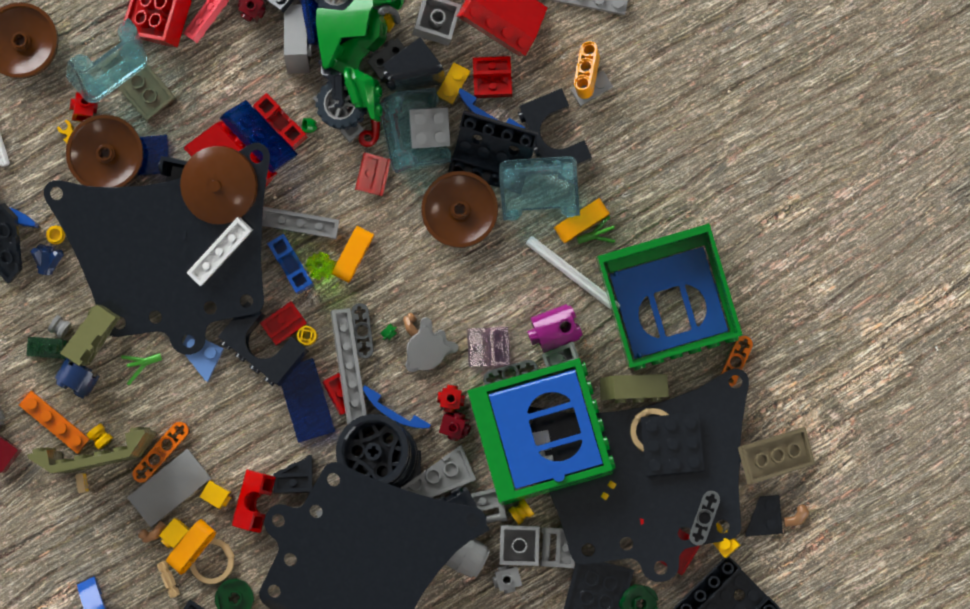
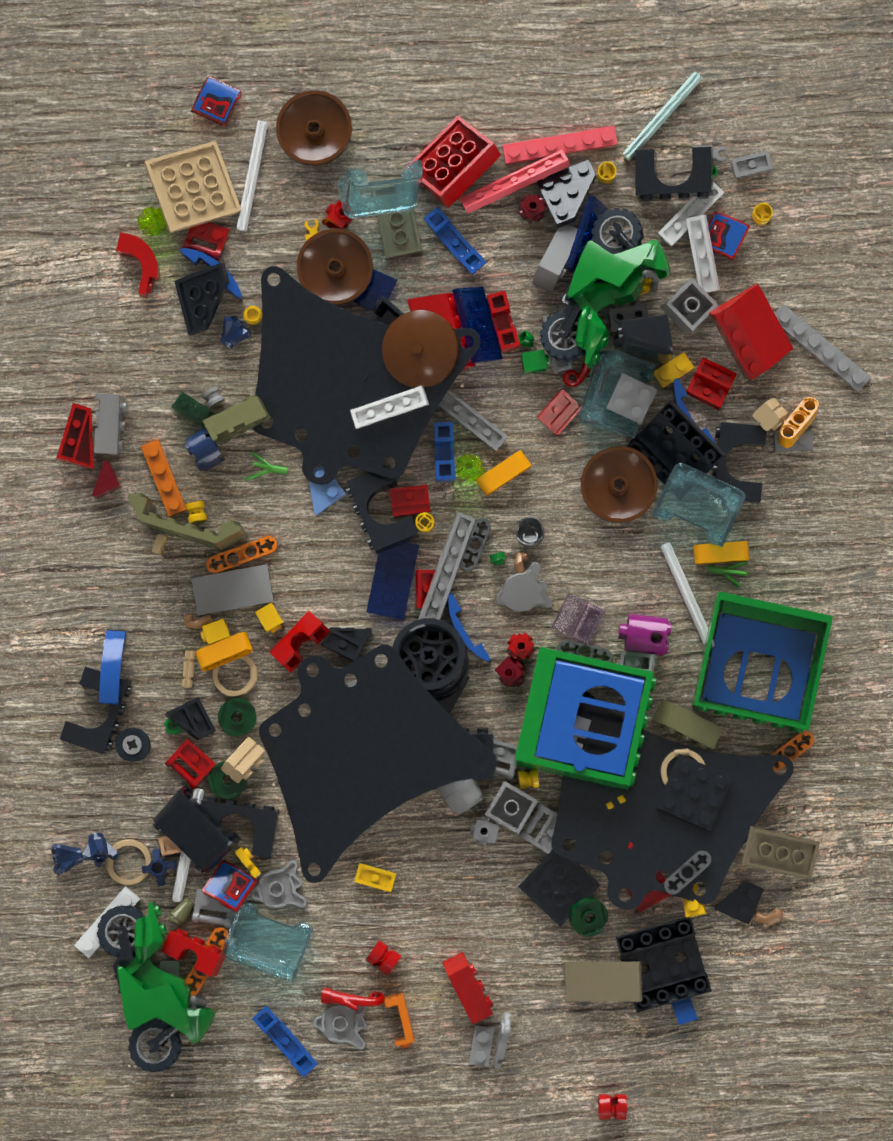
camera: 30 degrees right, 0 degrees up
(198, 73) = (454, 241): none -> blue slope
(327, 141) = (534, 361): none -> green brick
(404, 293) = (530, 532): none -> dark grey hair
(443, 476) = (478, 710): light grey wing -> none
(559, 76) = (770, 415): none -> tan brick

